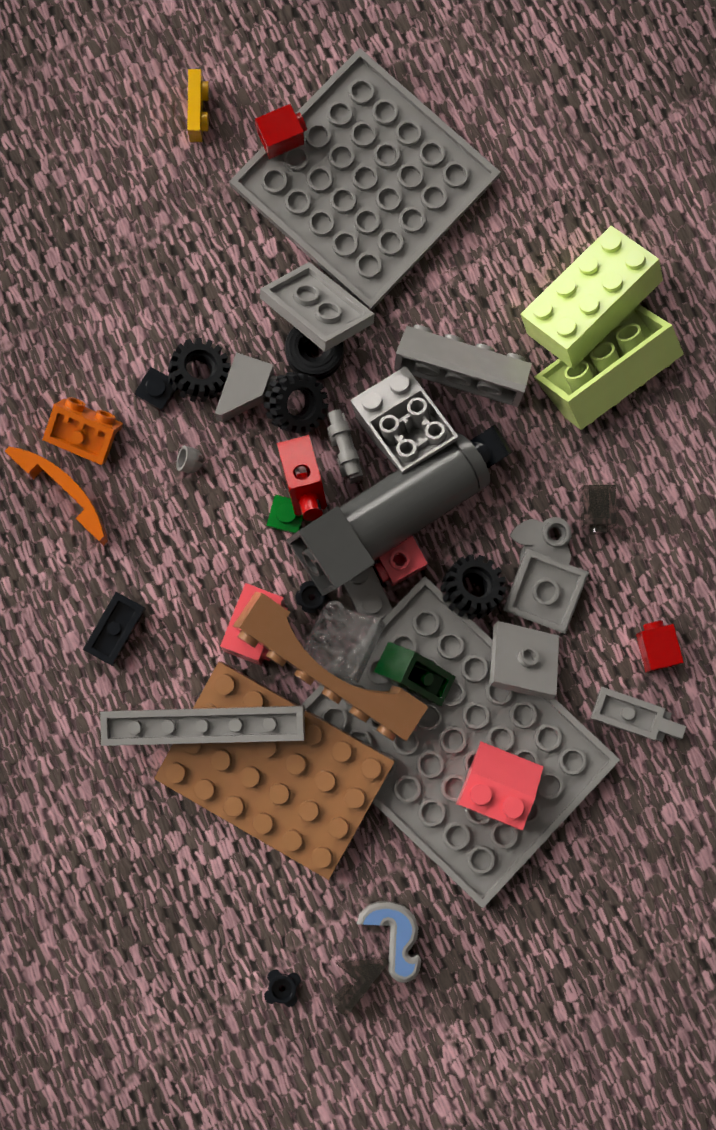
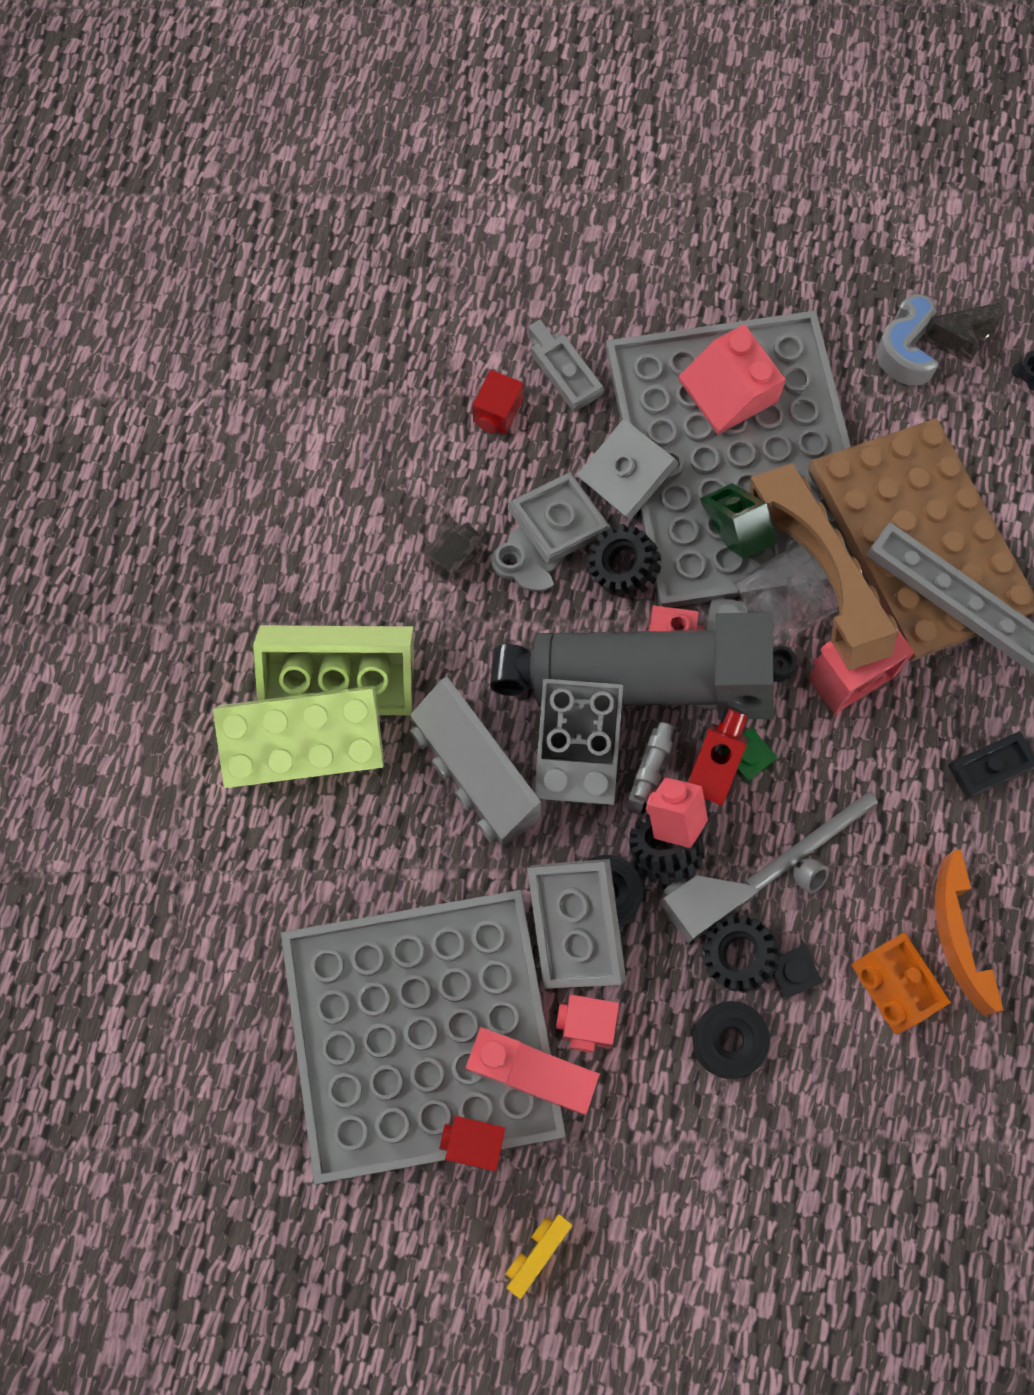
camera: 140 degrees left, 10 degrees down
(167, 296) = (754, 1036): none -> black tyre
(203, 485) = (812, 841): none -> light grey bar
(265, 258) = (587, 1022): none -> coral brick
(278, 197) = (532, 1071): none -> coral slope
(303, 417) = (677, 812): none -> coral brick

